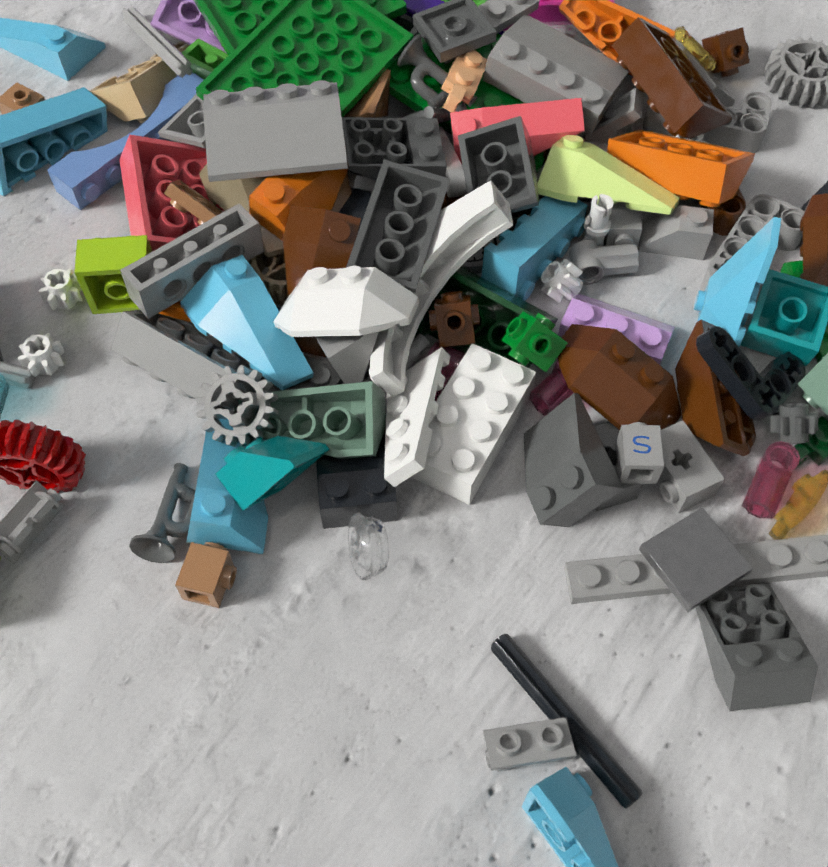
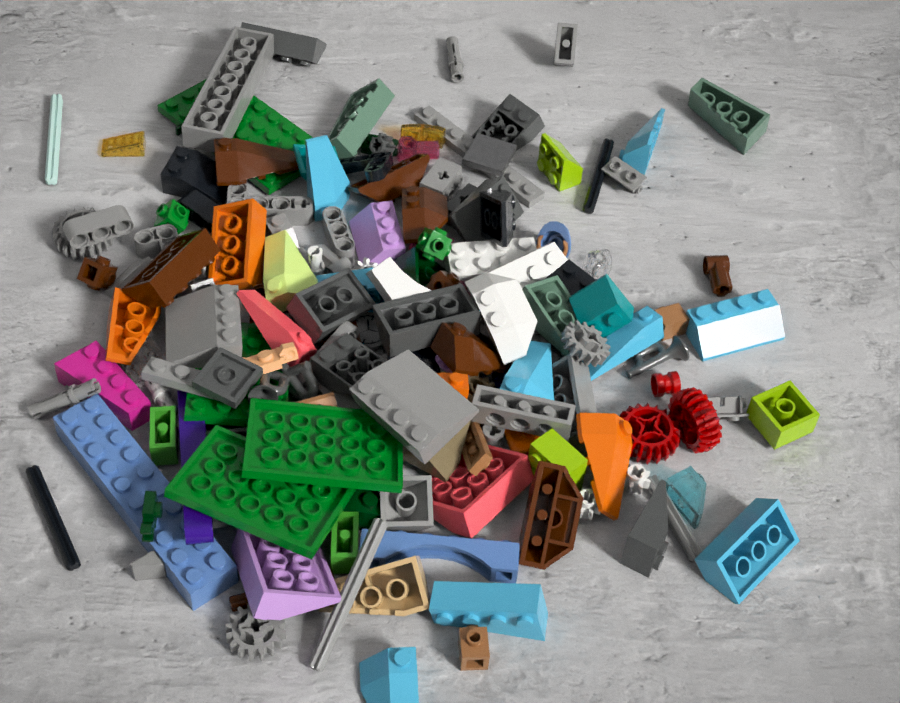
camera: 130 degrees left, 10 degrees down
(66, 218) = (549, 517): none -> reddish brown wedge
(82, 321) = (608, 452): none -> orange wedge
(88, 396) = (653, 433): none -> red gear
(122, 488) = (665, 384): none -> red wheel
(127, 663) = (735, 325): none -> slope
(237, 730) = (717, 270): none -> reddish brown piece
(446, 517) = (555, 232): none -> medium blue piece
(515, 426) = (497, 216): none -> black slope
(617, 651) = (558, 164): none -> lime slope
(639, 453) = (461, 181): light grey brick -> none
(647, 290) = (338, 233): none -> light grey beam
(695, 48) = (121, 276): clear yellow piece -> none
(771, 140) = (172, 214): none -> green brick
(789, 182) = (200, 209): none -> black beam
(790, 58) = (98, 226): none -> light grey beam

